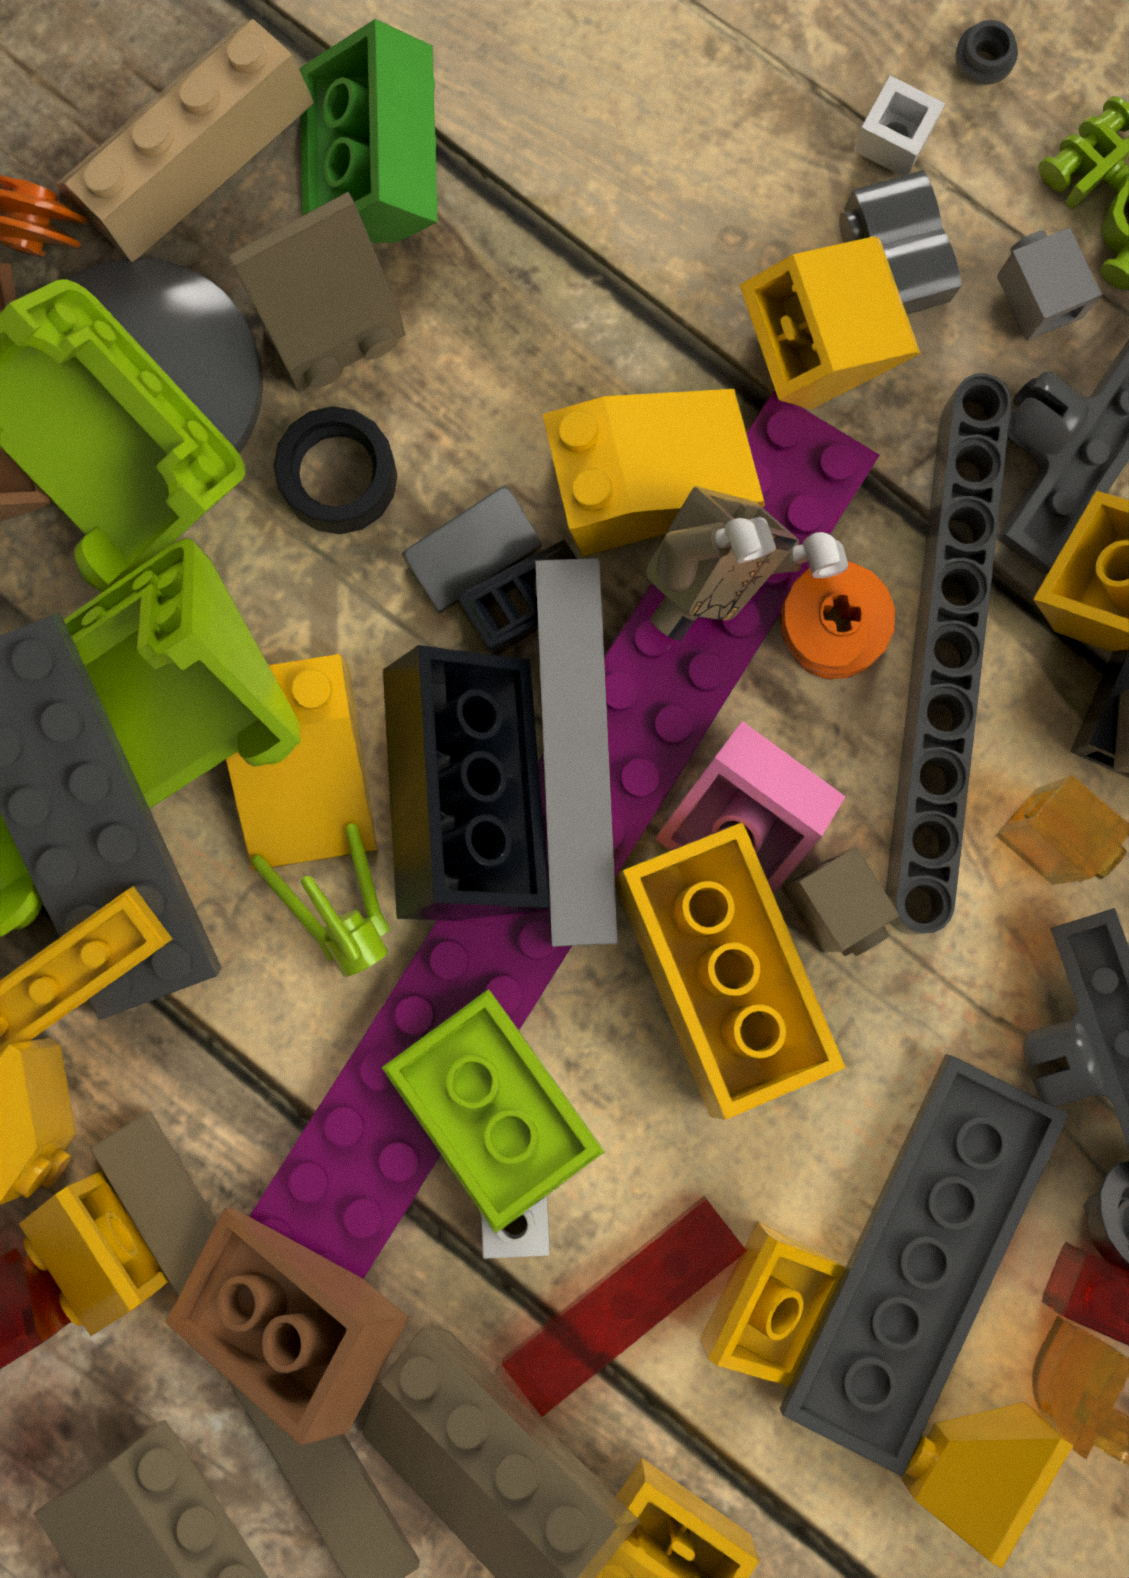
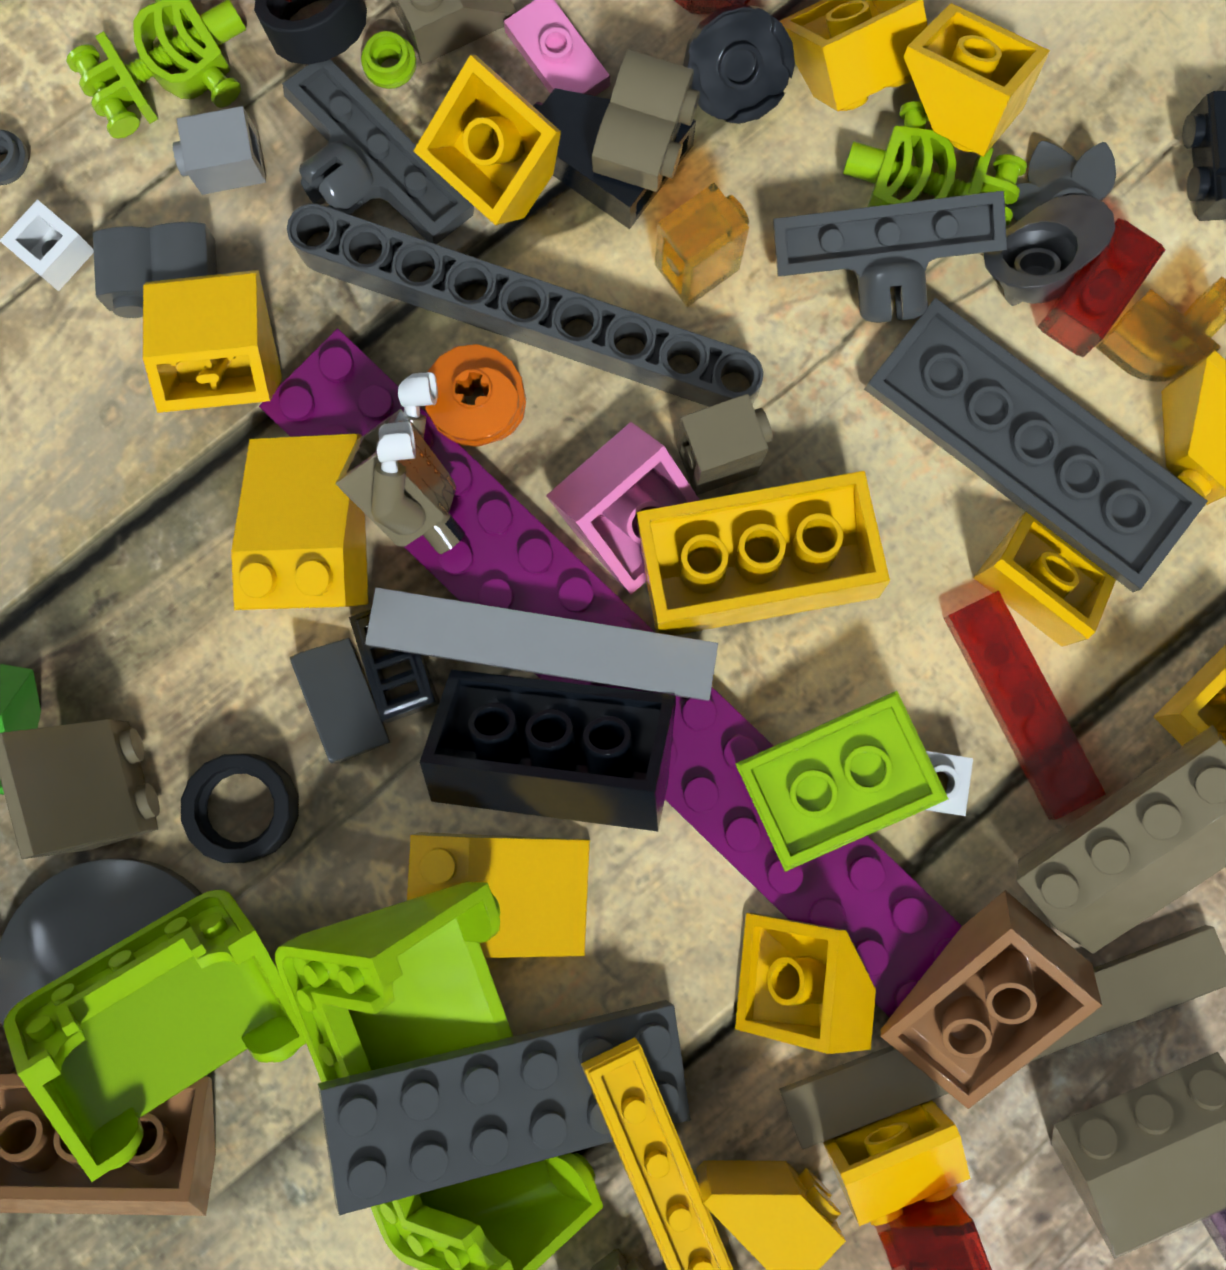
camera: 75 degrees left, 0 degrees up
(262, 1115) = (804, 986): none -> yellow slope
(346, 939) = (663, 882): lime plant -> none

